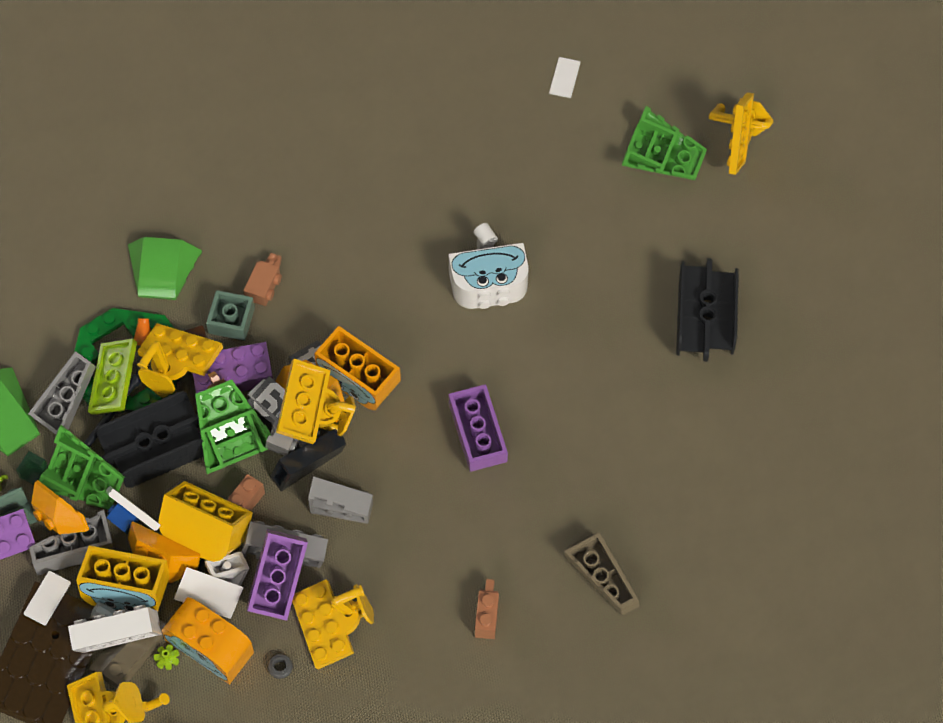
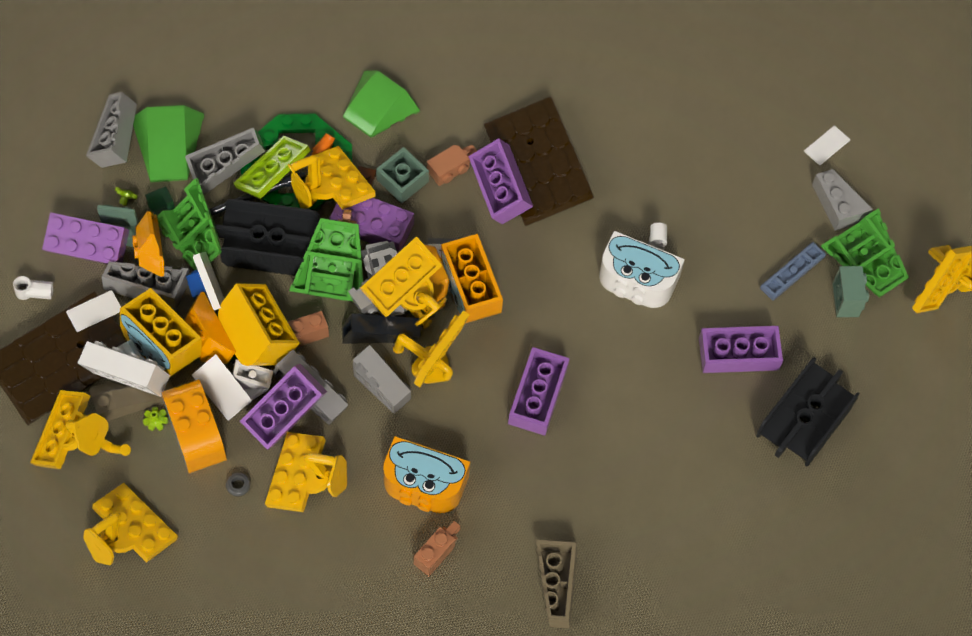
camera: 30 degrees right, 0 degrees up
(319, 269) = (500, 181): none -> medium lavender brick
(337, 233) = (543, 158): none -> dark brown piece
(370, 460) = (432, 361): none -> yellow plate
(434, 558) = (424, 476): none -> brick
(608, 117) = (839, 200): none -> light grey wedge
(611, 200) = (792, 271): none -> sand blue plate
(616, 291) = (740, 349): none -> medium lavender brick
(670, 189) = (850, 291): none -> sand green brick

